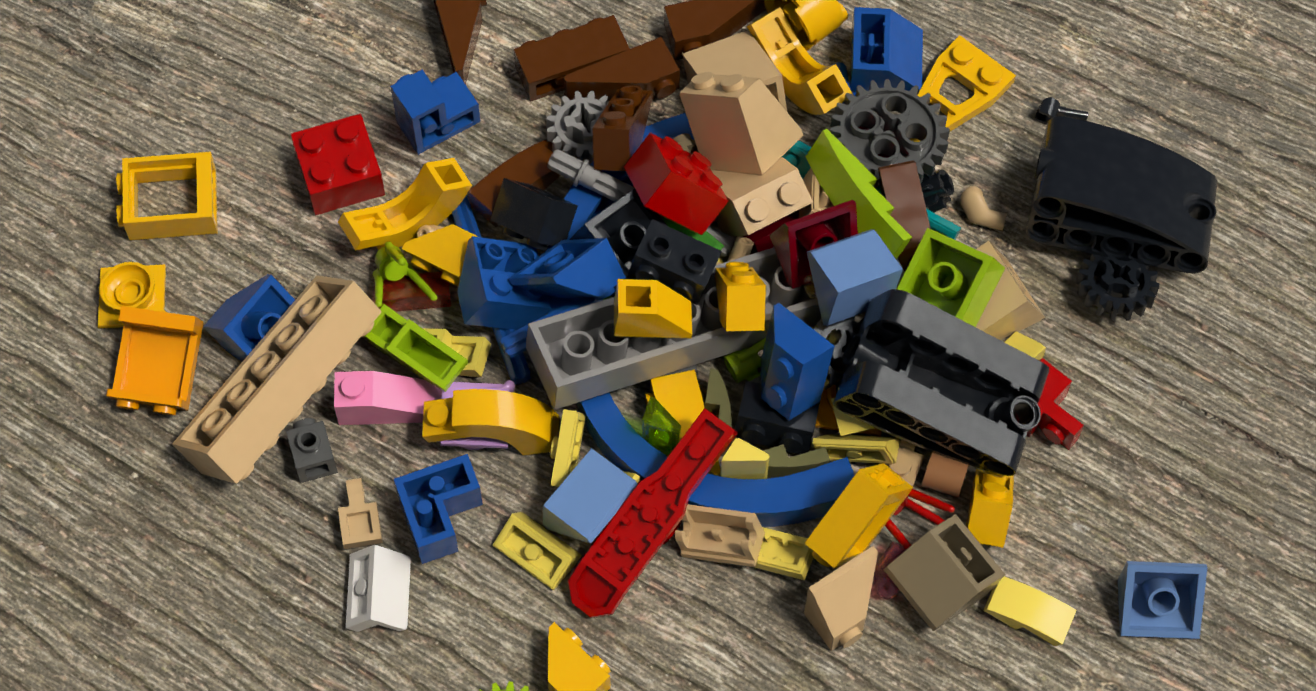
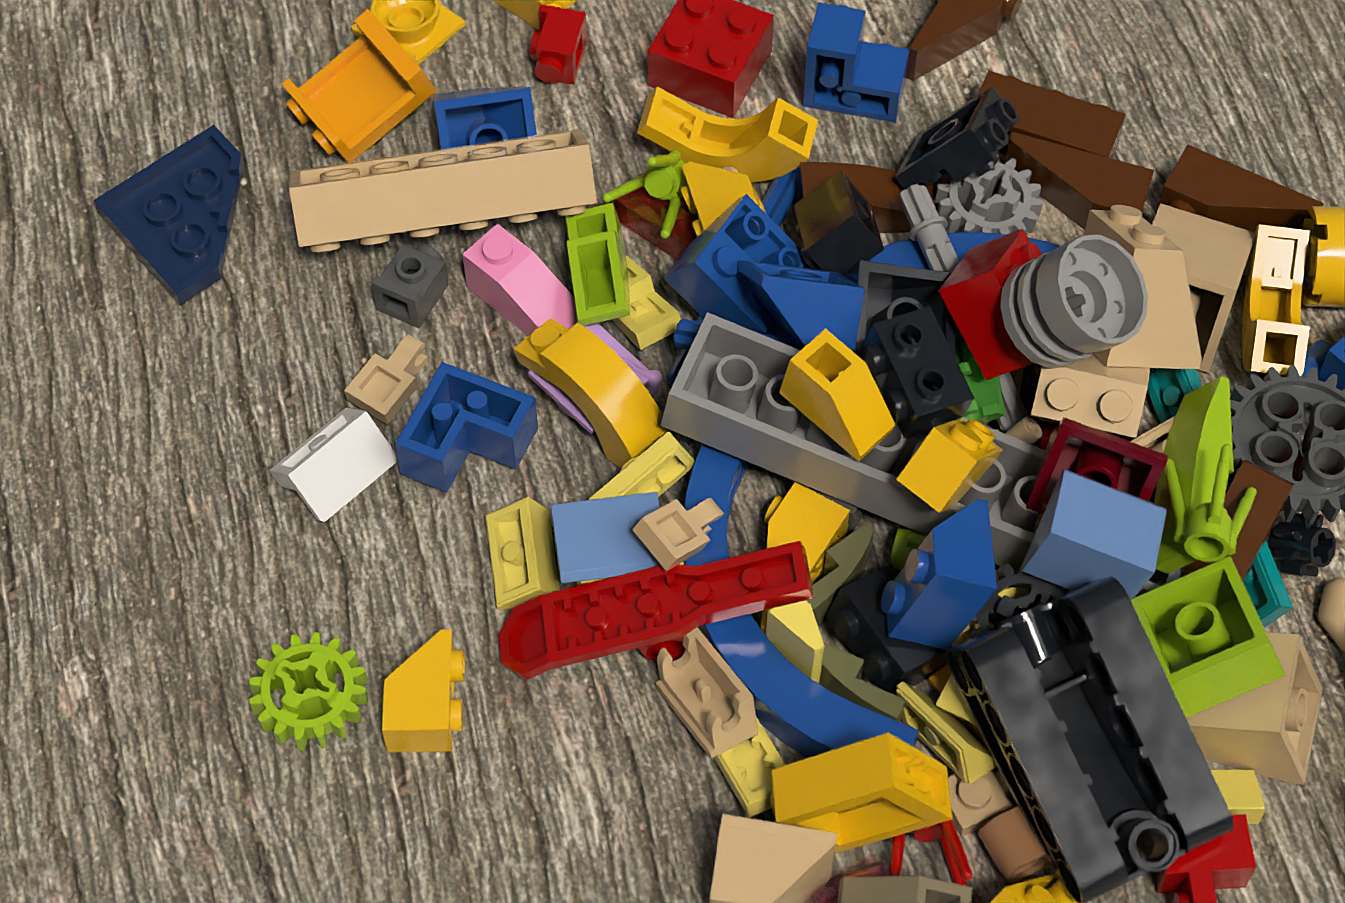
camera: 45 degrees right, 5 degrees down
(123, 526) = (180, 212): none -> dark blue plate
(242, 233) = (559, 44): none -> red brick
(543, 105) = (960, 142): none -> black plate
(621, 128) = (1003, 208): reddish brown slope -> none
(628, 461) = (676, 533): none -> tan plate
(660, 428) = (746, 523): clear neon green slope -> none
(729, 154) = (1074, 301): none -> light grey wheel
(905, 219) = (1209, 530): none -> lime plant

